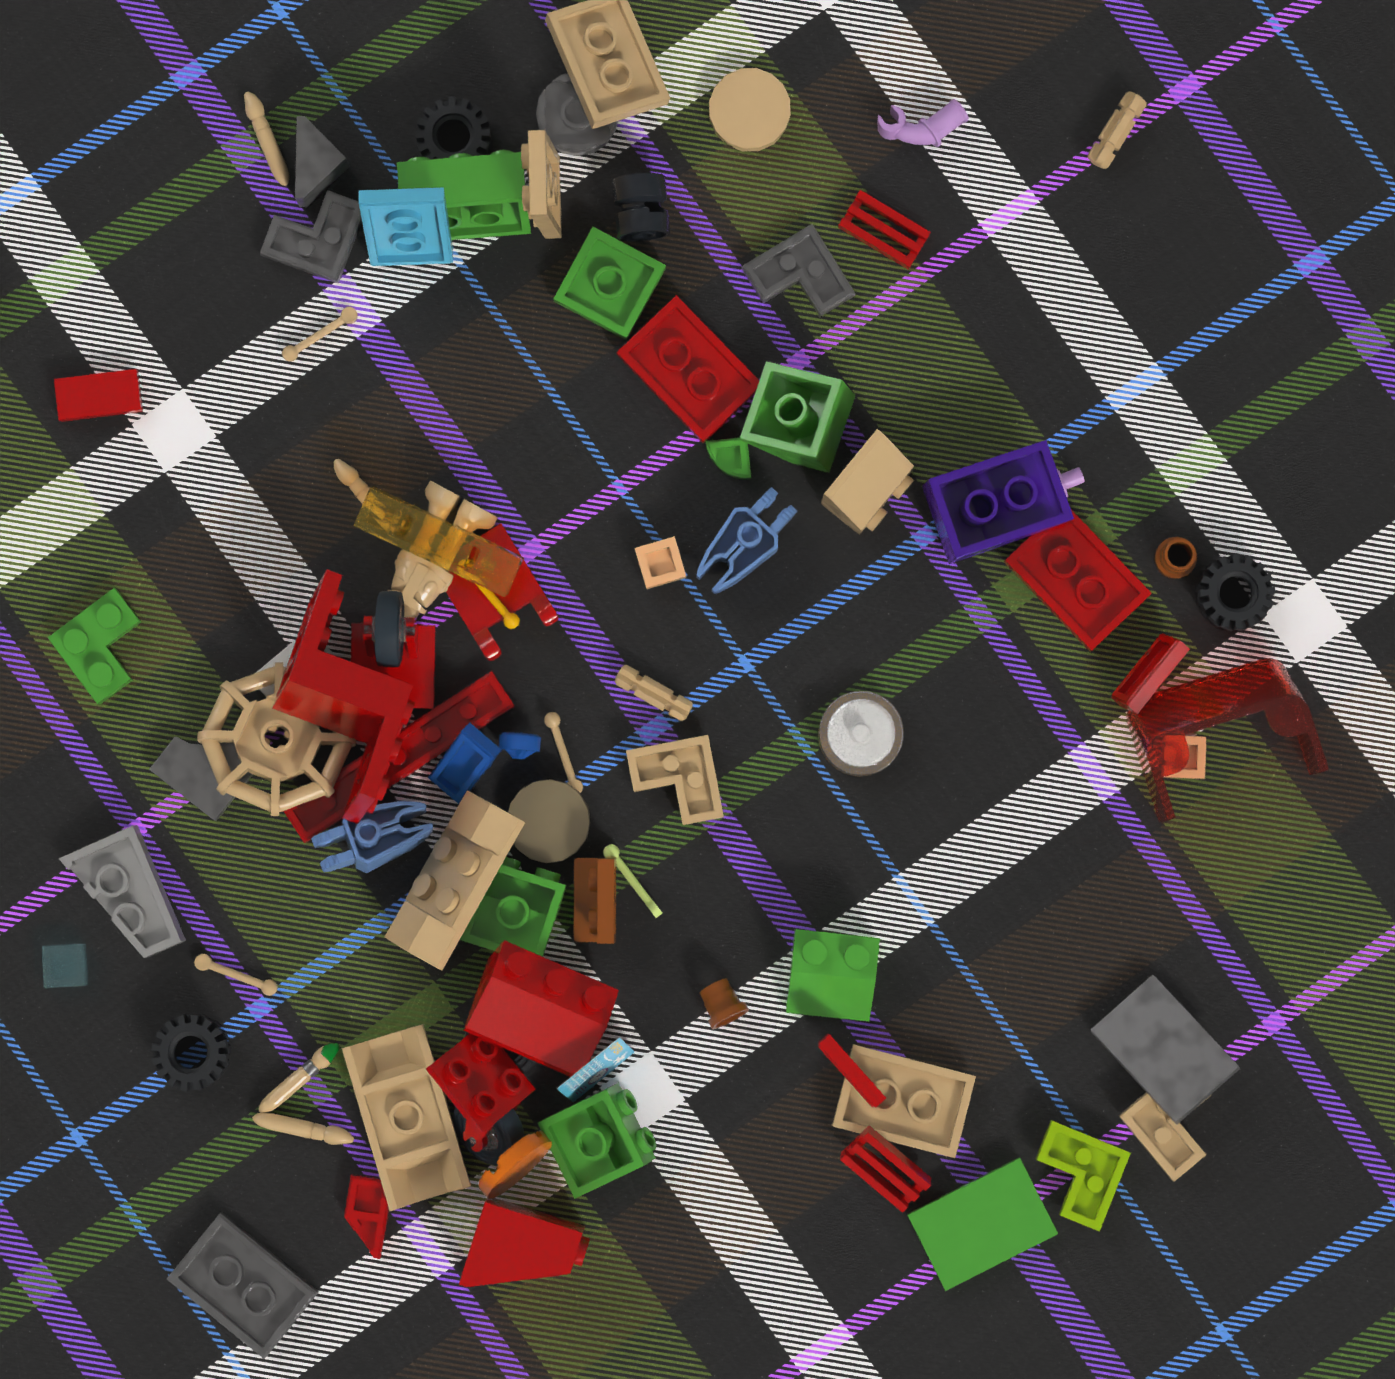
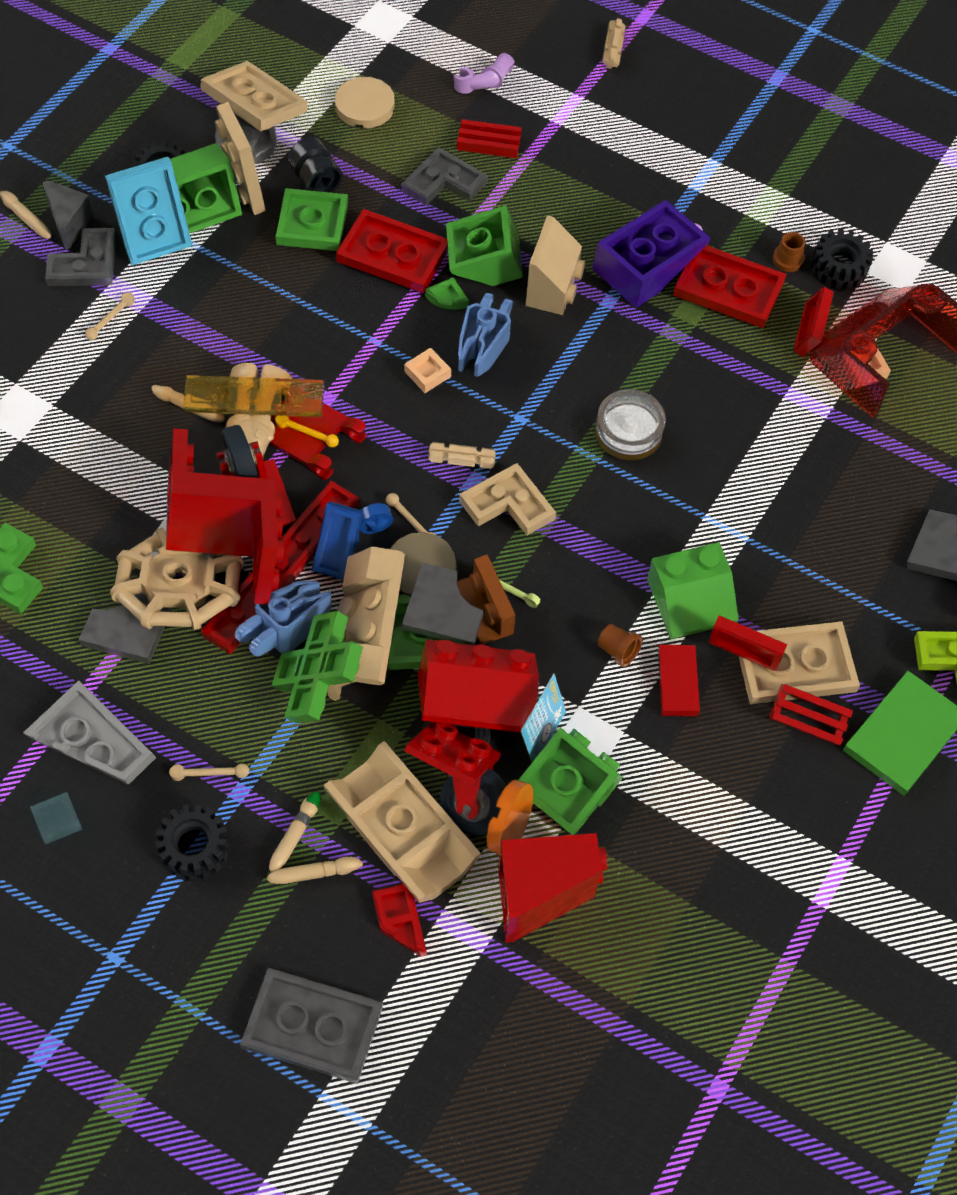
camera: 25 degrees left, 25 degrees down
(381, 919) = (321, 663): none -> bright green plate
(537, 900) = (439, 609): none -> flat silver tile
(768, 1067) = (678, 680): none -> red tile

